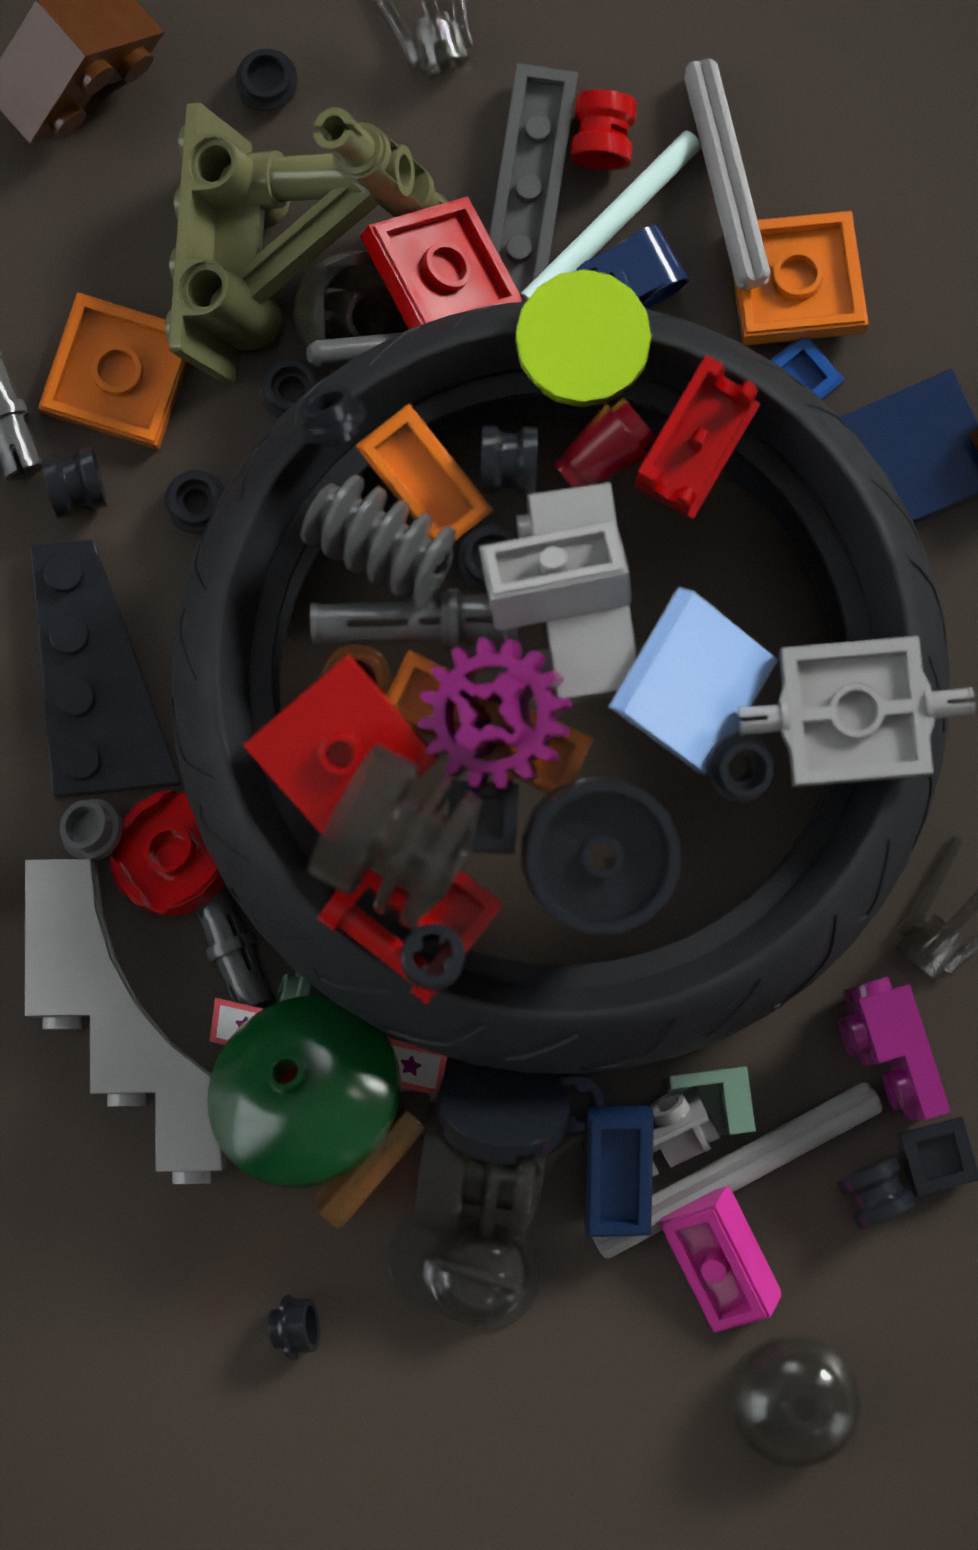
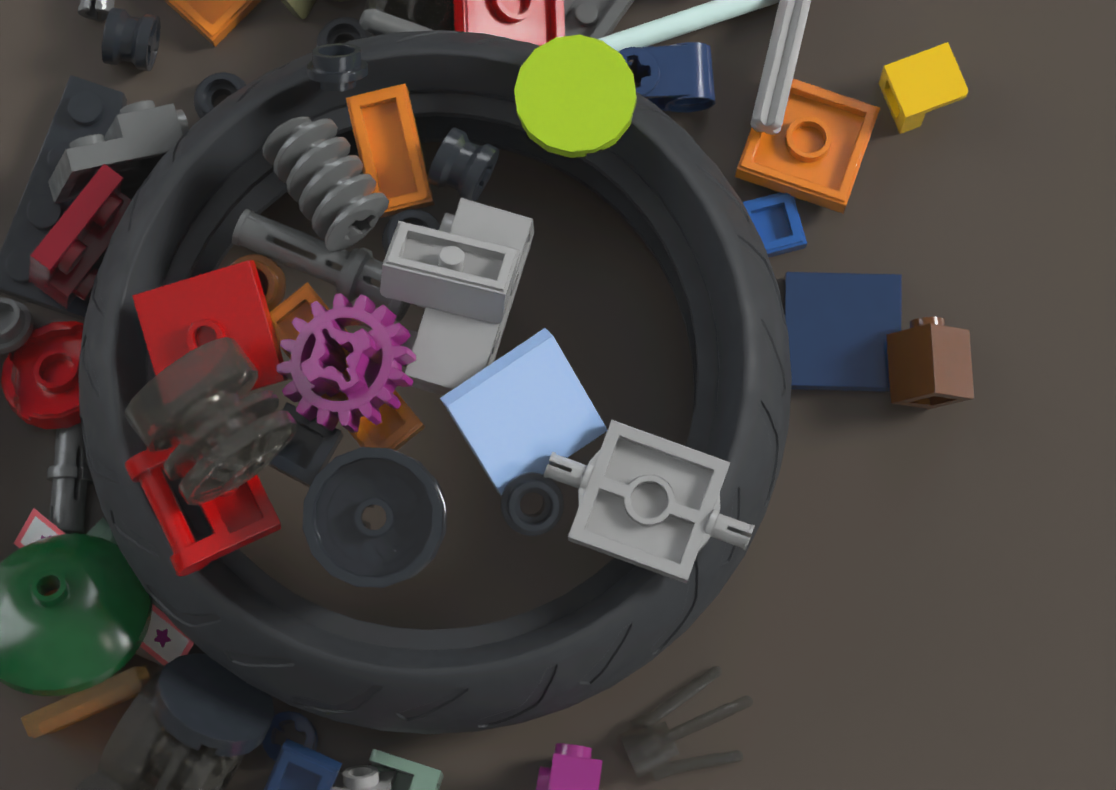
camera: 30 degrees right, 5 degrees down
(136, 598) = (129, 148): none -> dark grey plate
(137, 709) = (76, 245): none -> dark red plate
(451, 966) = (185, 521): black bush -> none
(606, 446) = (550, 190): dark red cone -> none
(697, 439) = (626, 218): red hinge -> none
(885, 170) = (921, 85): none -> yellow panel

